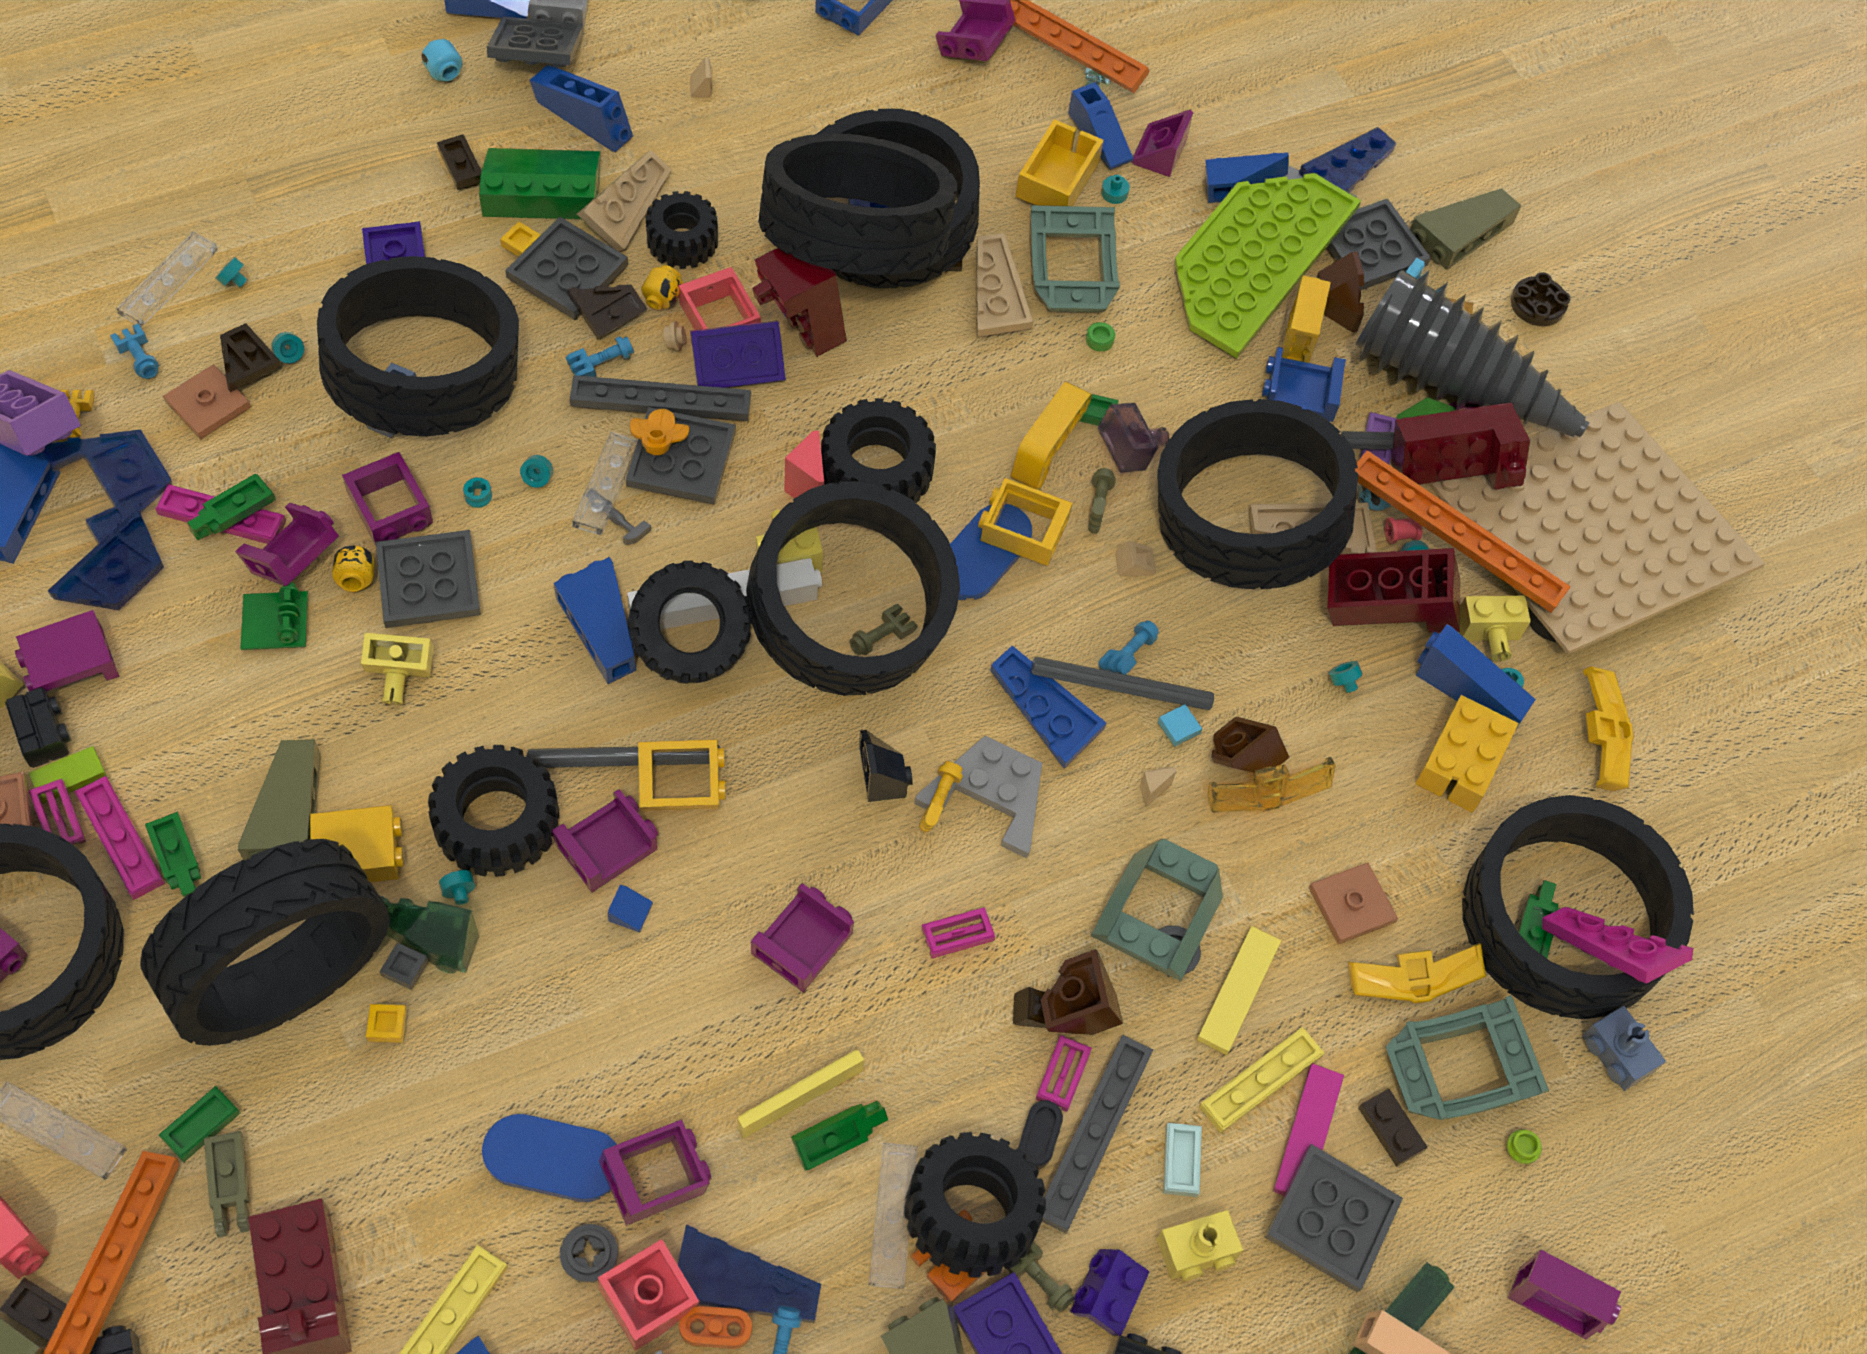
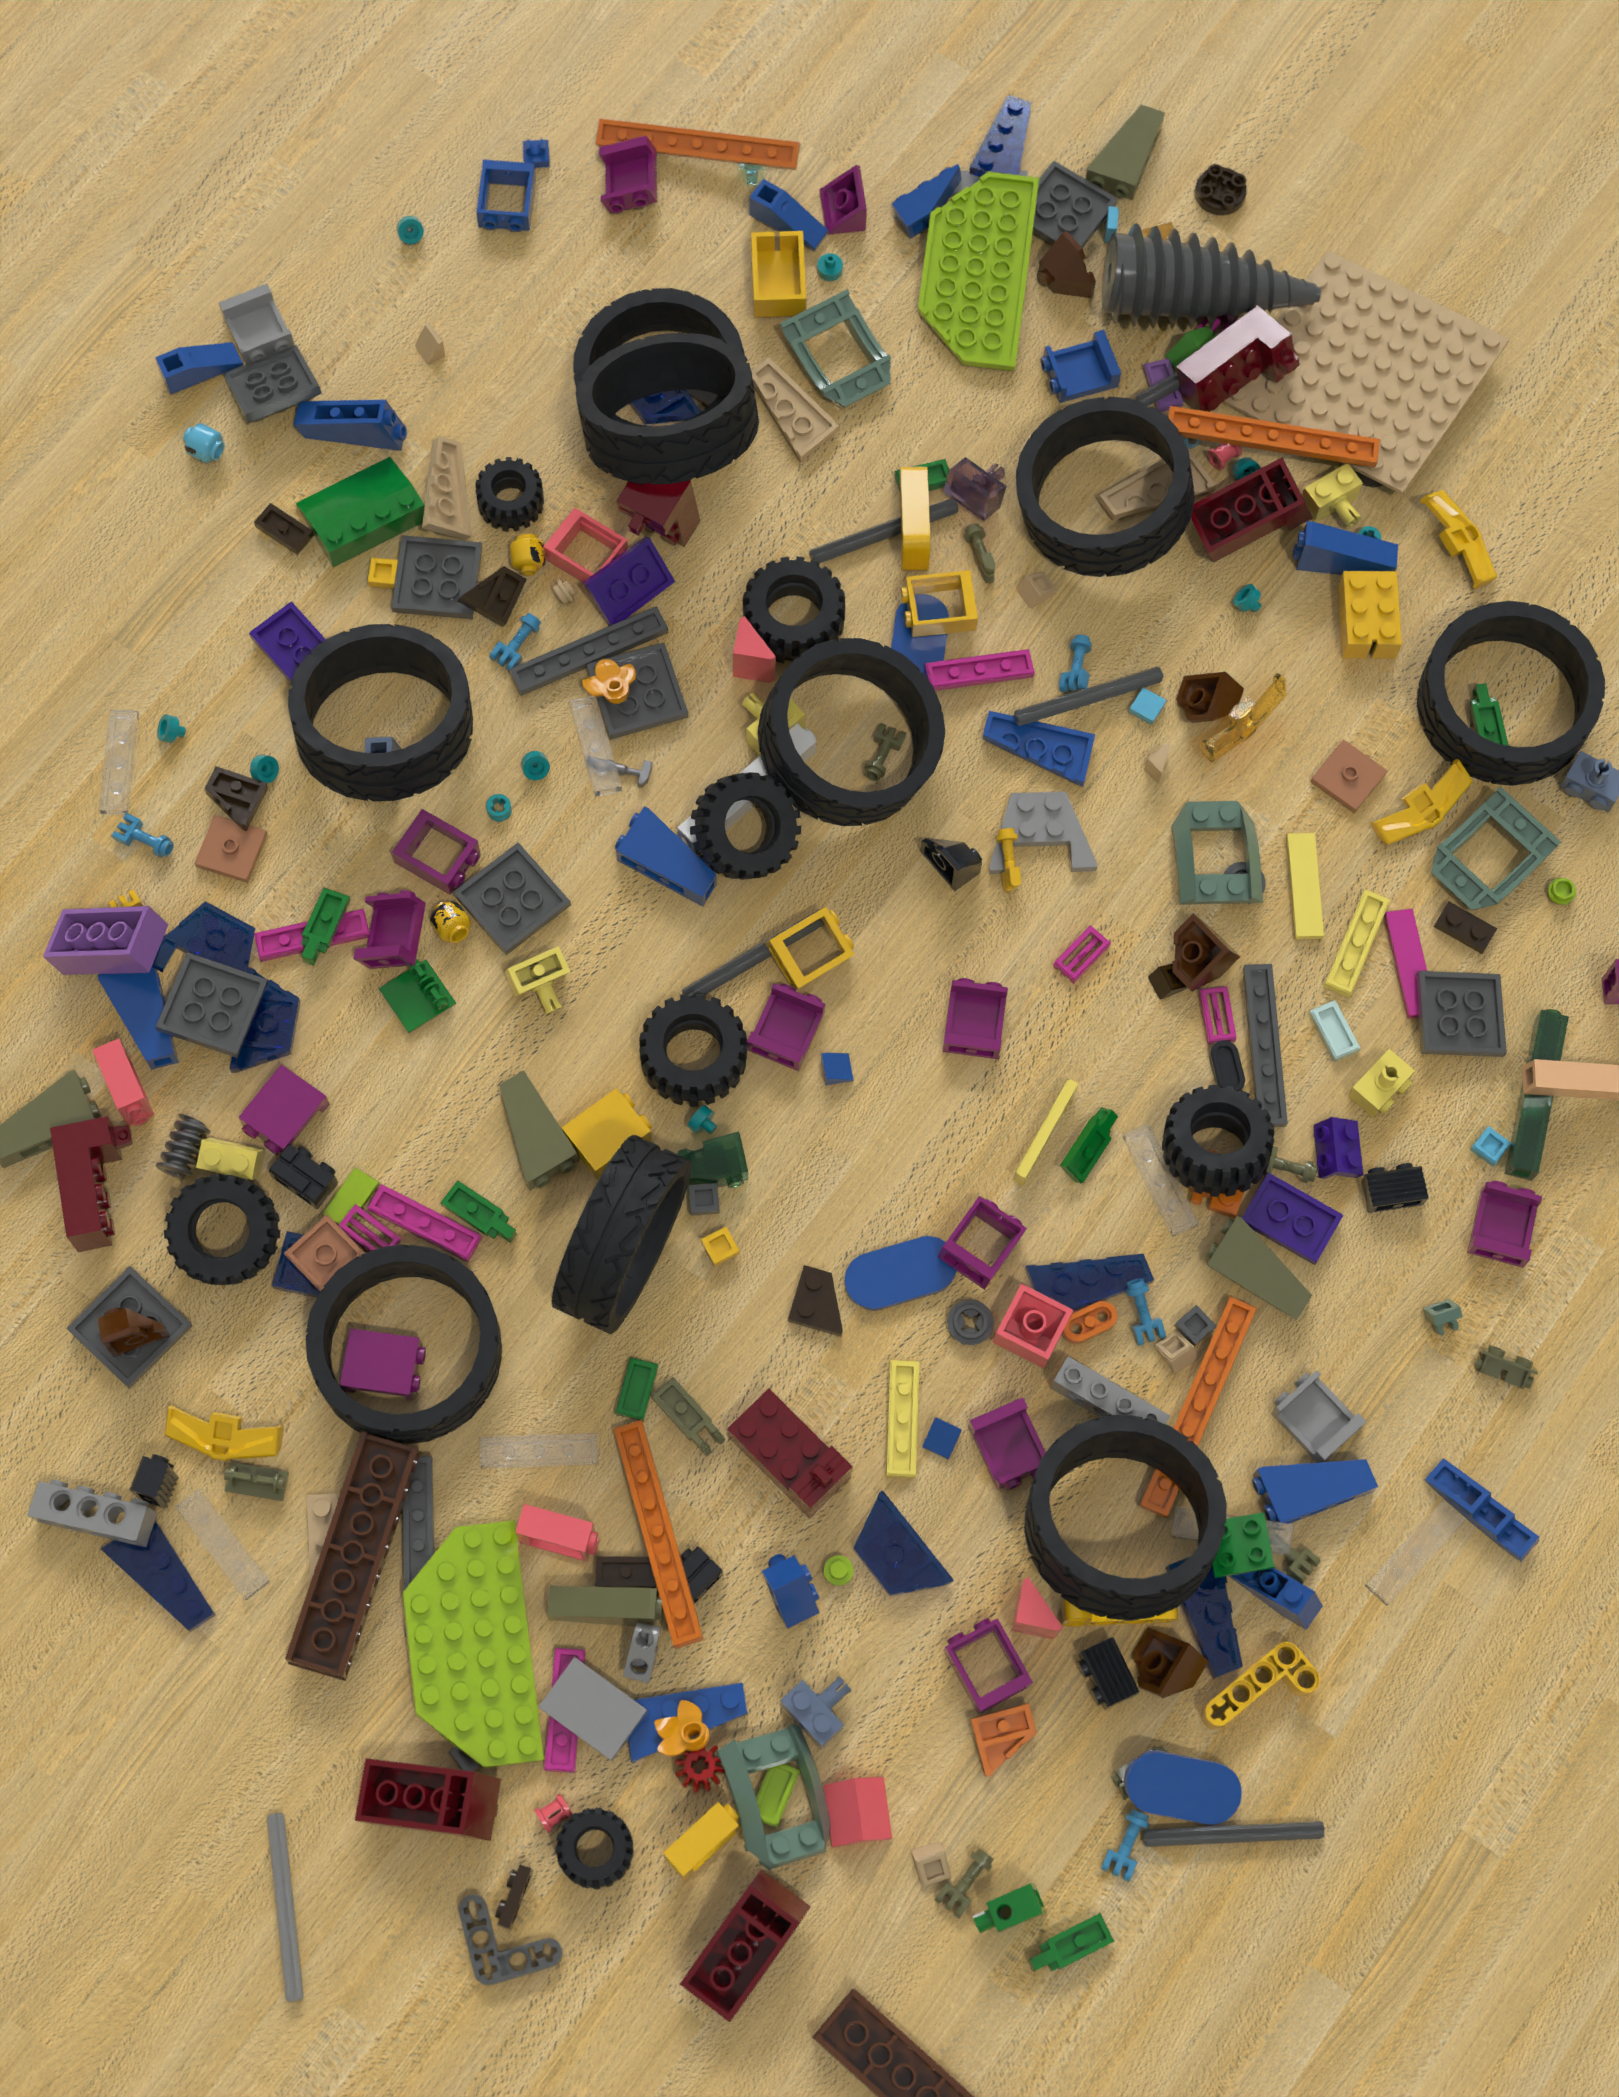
camera: 25 degrees left, 10 degrees up
(70, 521) = (212, 1005): none -> dark grey plate
(444, 1138) = (816, 1302): none -> dark brown wing
(1008, 433) = (876, 533): none -> dark grey axle
(1027, 604) = (980, 670): none -> dark pink tile
(1100, 336) = (897, 409): bright green tile -> none
(1305, 319) = (1054, 310): yellow window -> none
(1616, 944) = (1558, 710): dark pink wing -> none

